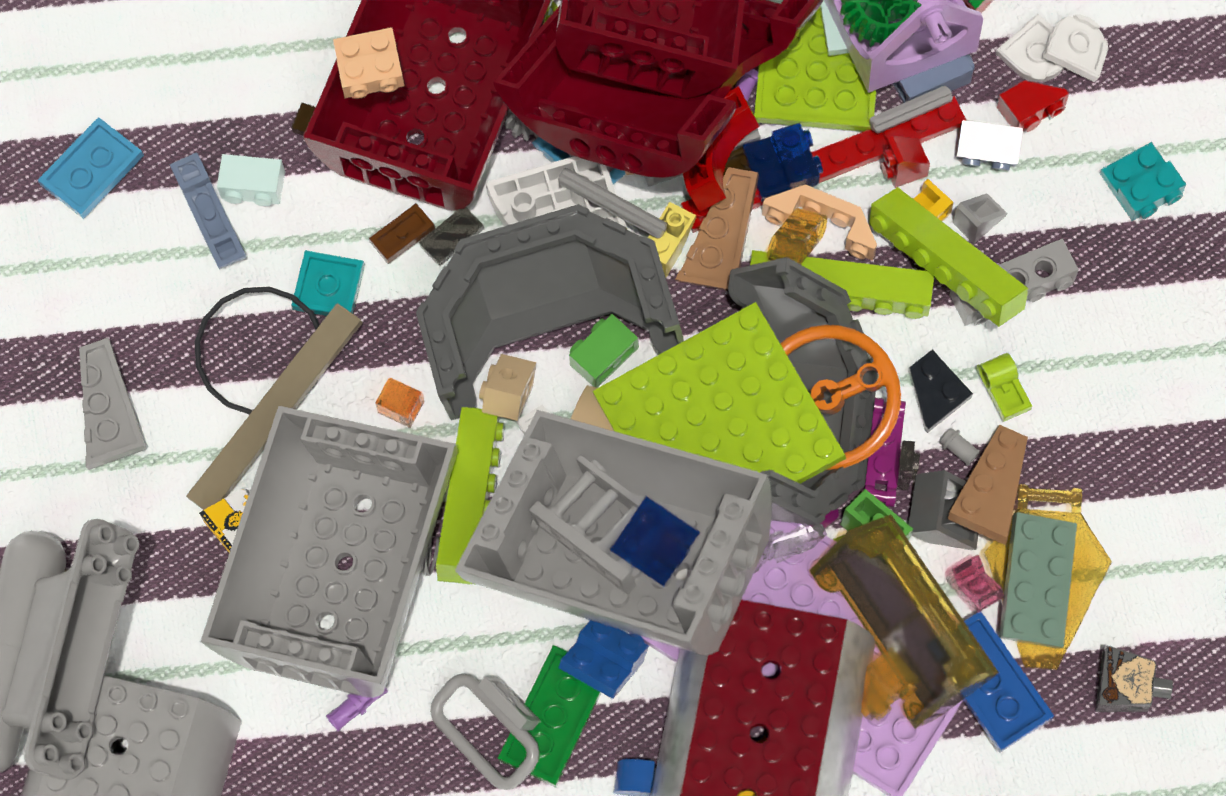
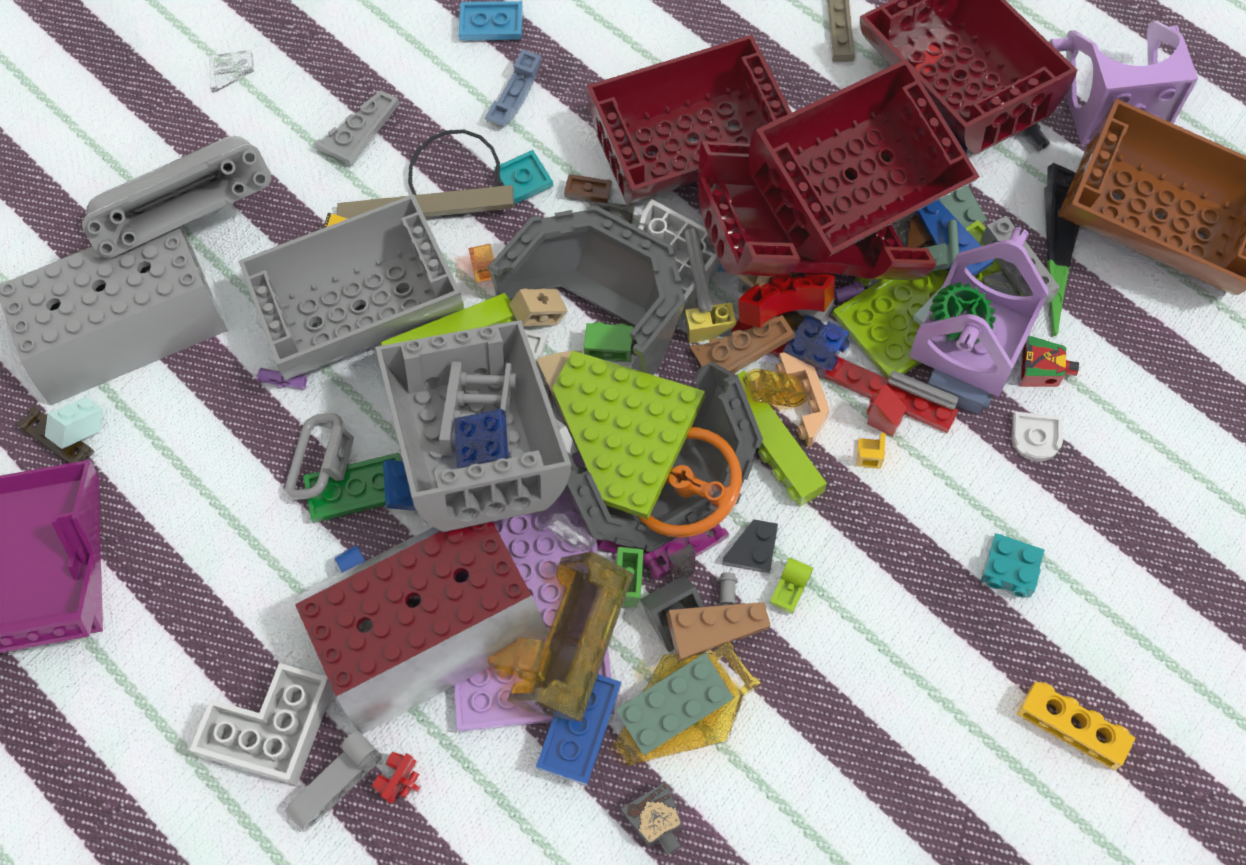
camera: 50 degrees right, 5 degrees down
(251, 180) = (551, 94): light aqua brick -> none
(368, 63) = (659, 80): light nougat plate -> none
(948, 257) = (841, 483): lime brick -> none
(974, 584) = (638, 665): clear pink slope -> none
(978, 216) = (893, 483): light grey slope -> none
(989, 144) = (944, 452): brick -> none
(1030, 103) = (997, 457): red slope -> none
(1052, 258) = (881, 536): light grey brick -> none
(1077, 46) = (1064, 455): white tile -> none

